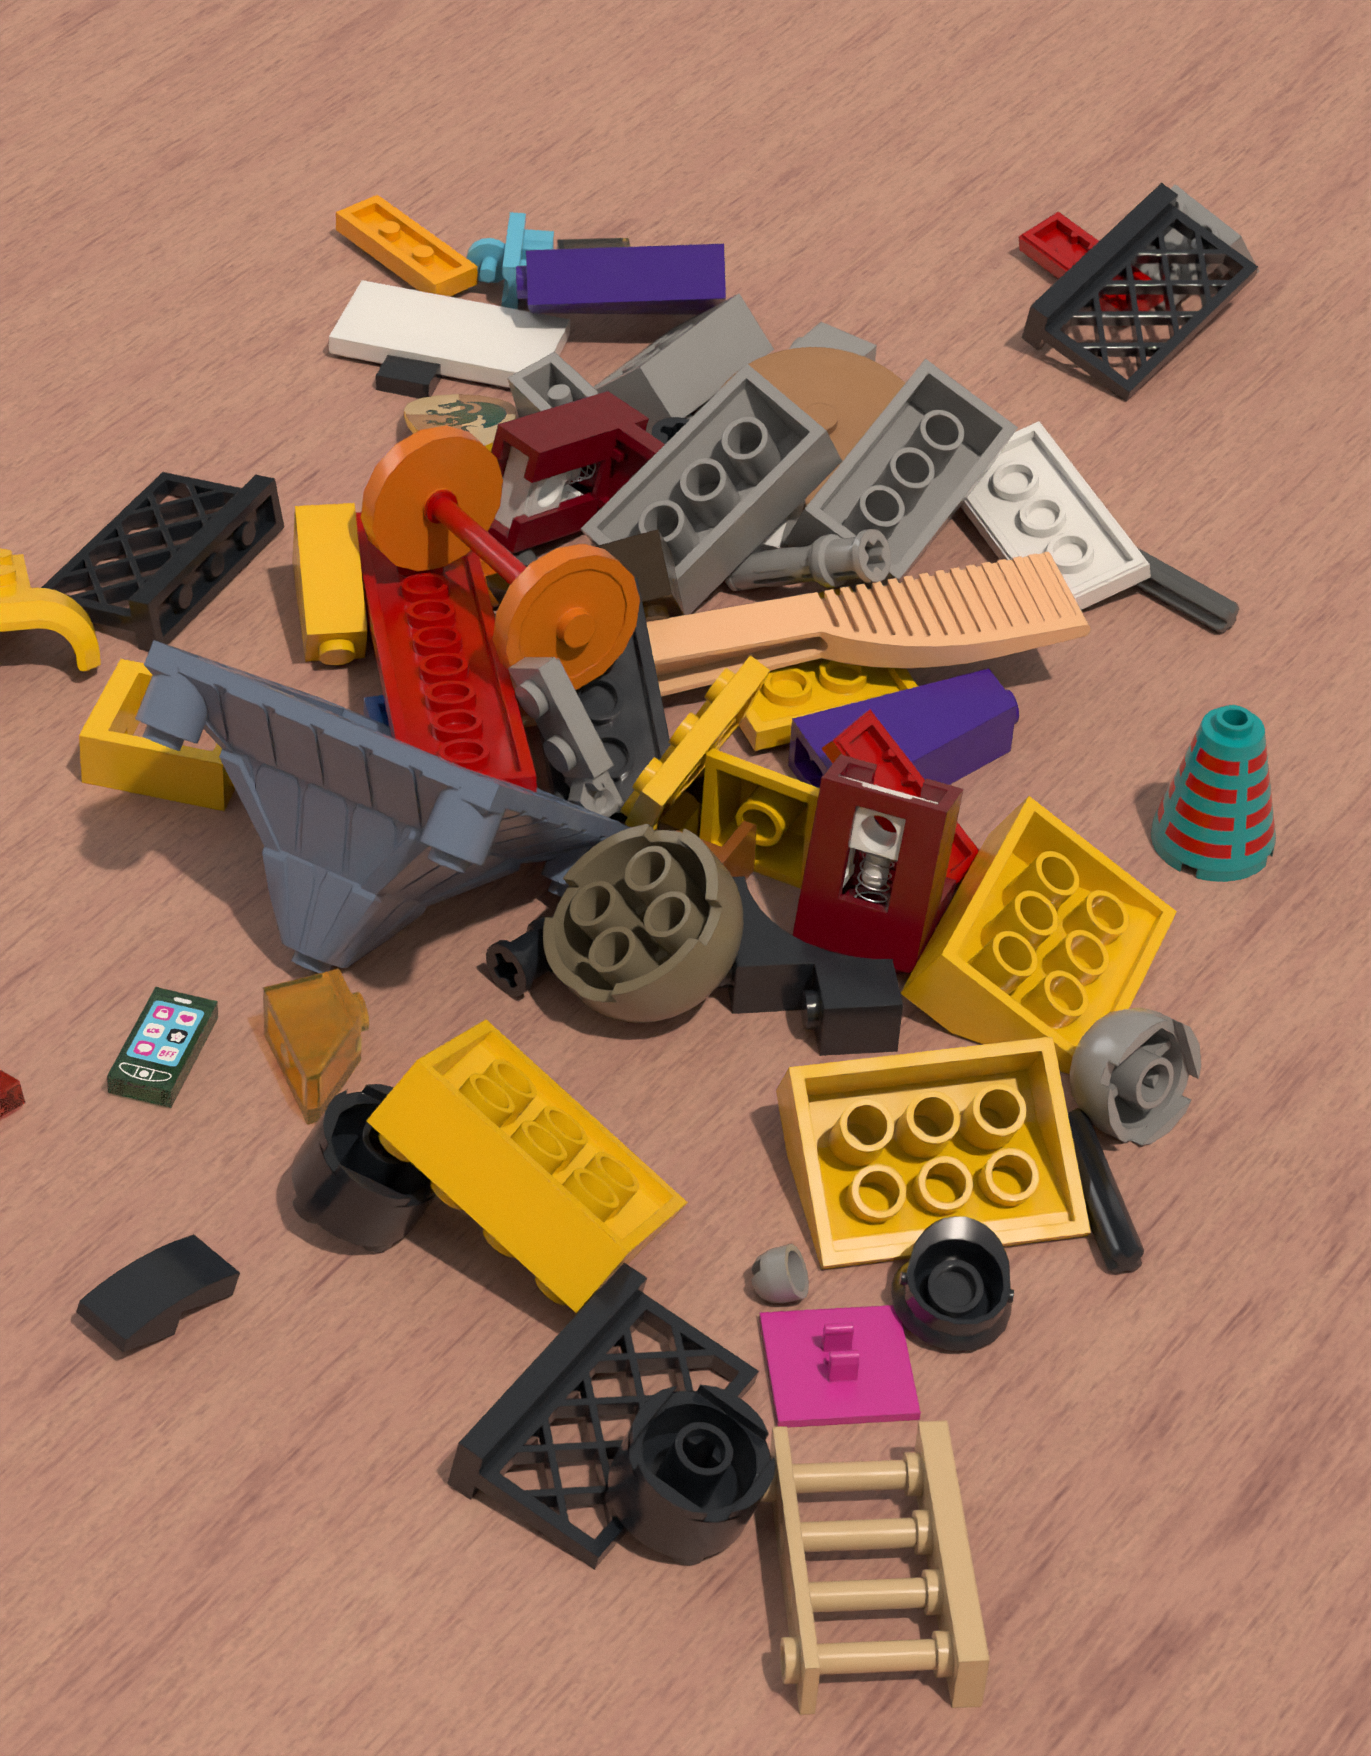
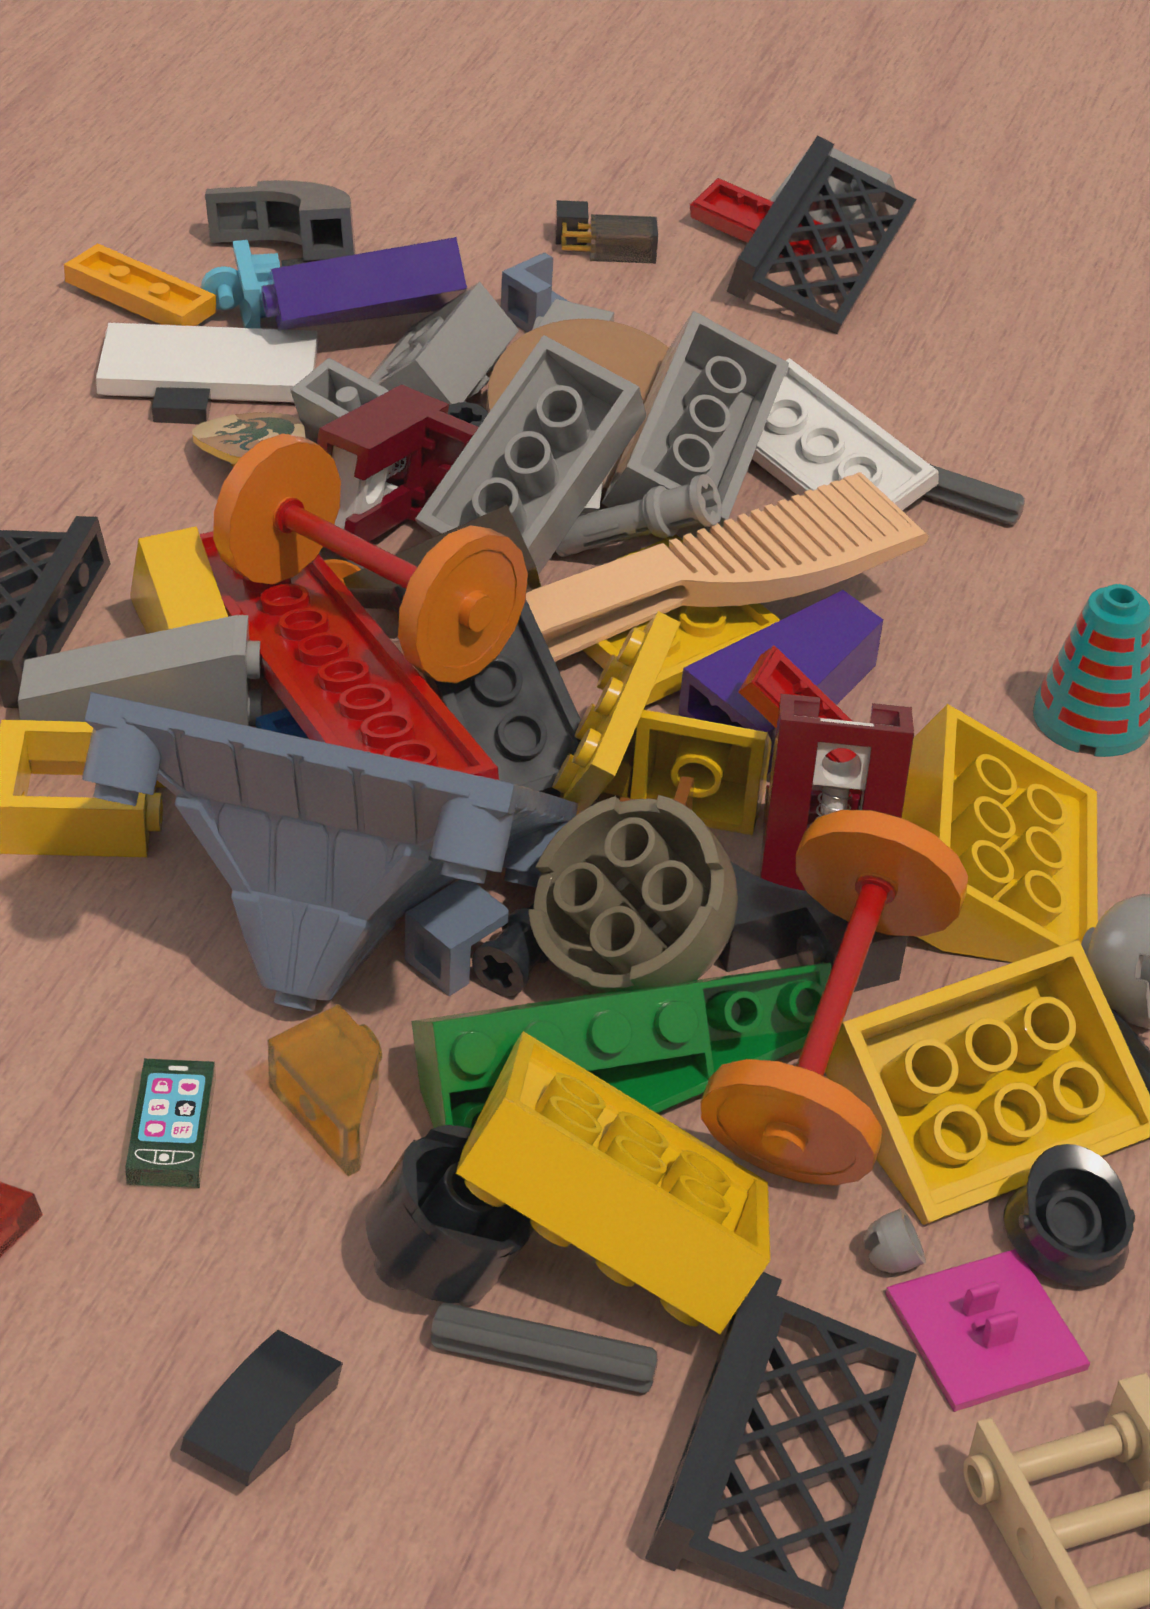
camera: 15 degrees left, 0 degrees up
(298, 642) = (182, 669): none -> light grey slope
(424, 1297) = (544, 1347): none -> dark grey axle
(468, 919) = (446, 927): none -> sand blue panel
(568, 733) = (488, 713): light grey hinge -> none
(575, 185) = (285, 211): none -> dark grey arch
(623, 1057) = (642, 1041): none -> green wedge
(690, 1472) = (915, 1494): black brick -> none
(806, 303) = (528, 290): none -> sand blue panel
(868, 943) = (879, 879): none -> orange piece
(916, 259) = (610, 236): none -> clear smoke piece

